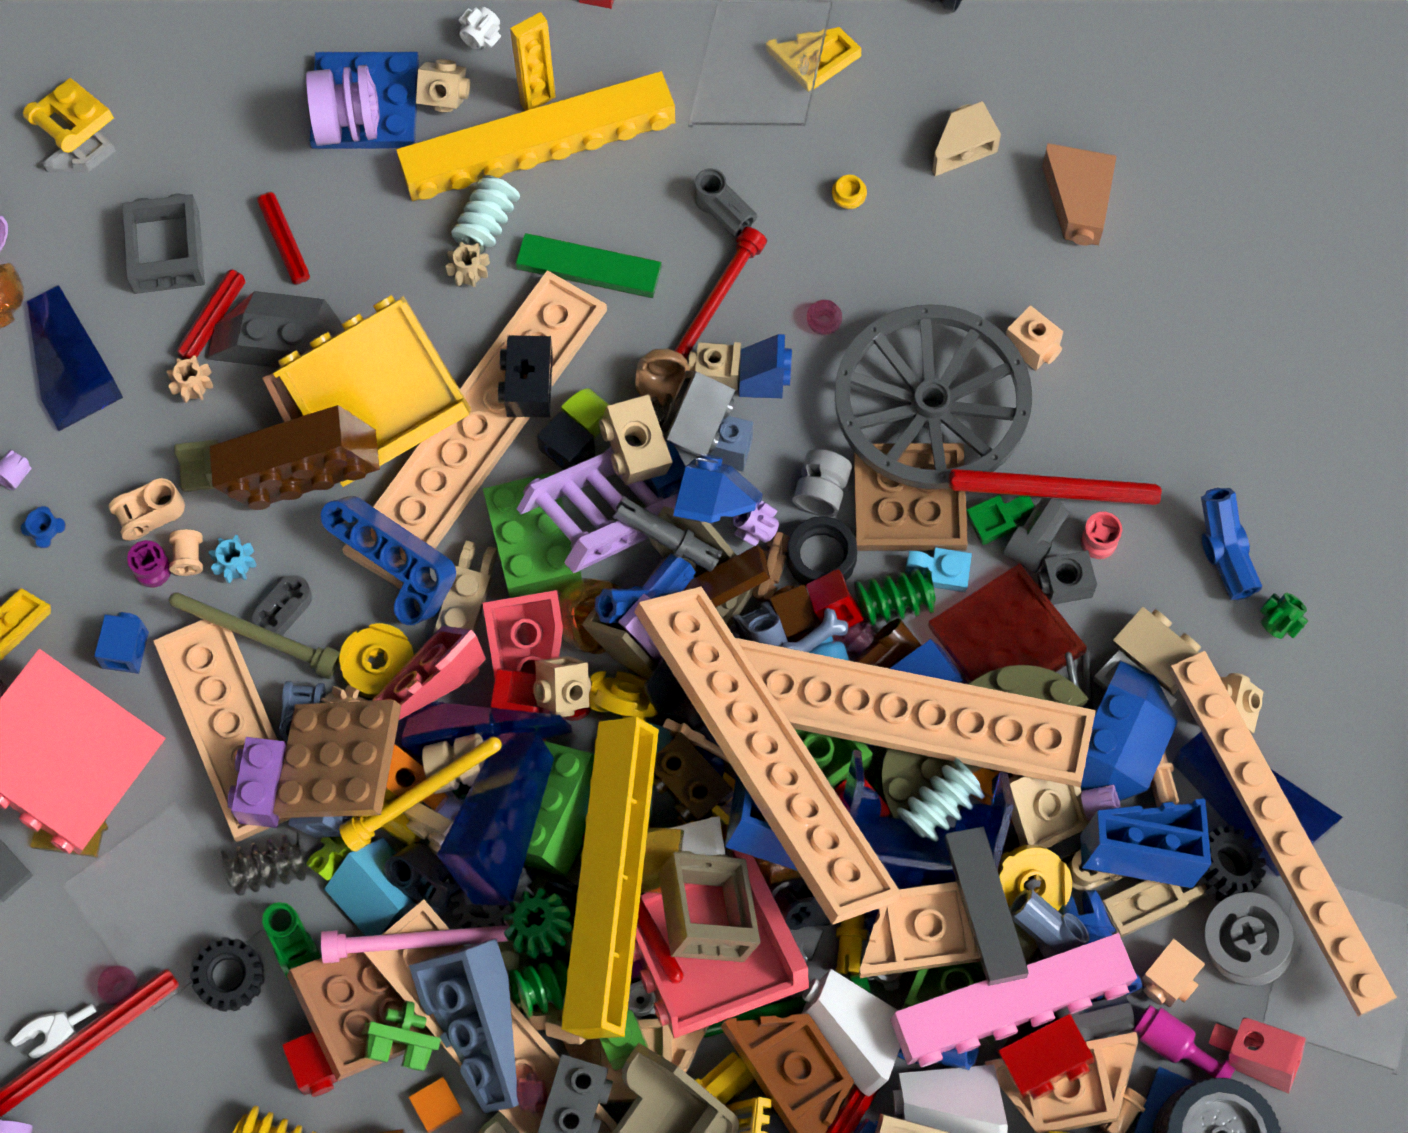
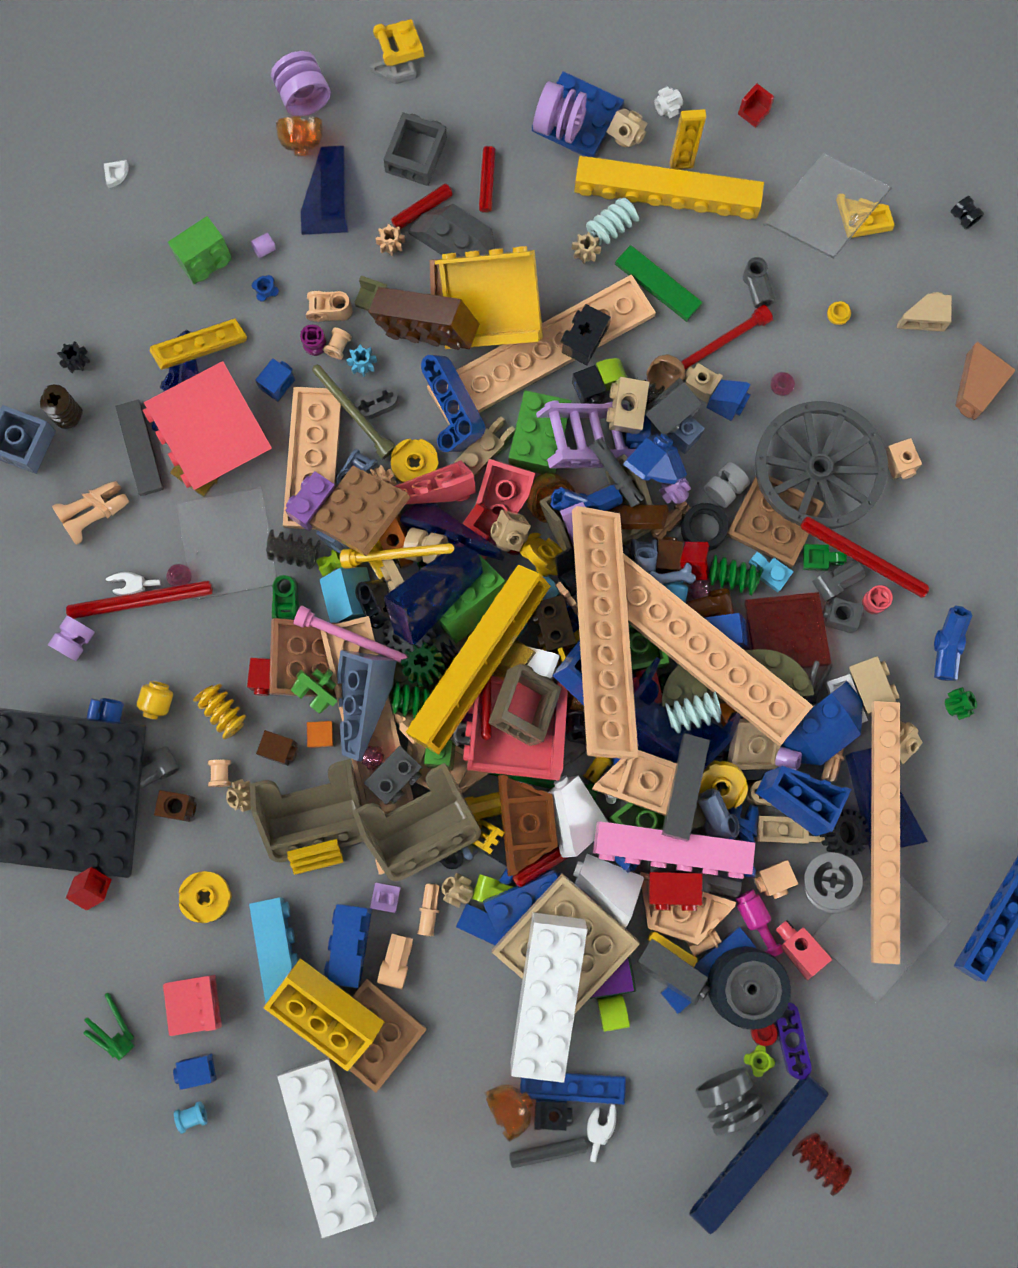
camera: 25 degrees right, 10 degrees up
(214, 954) = (230, 591): black tyre -> none

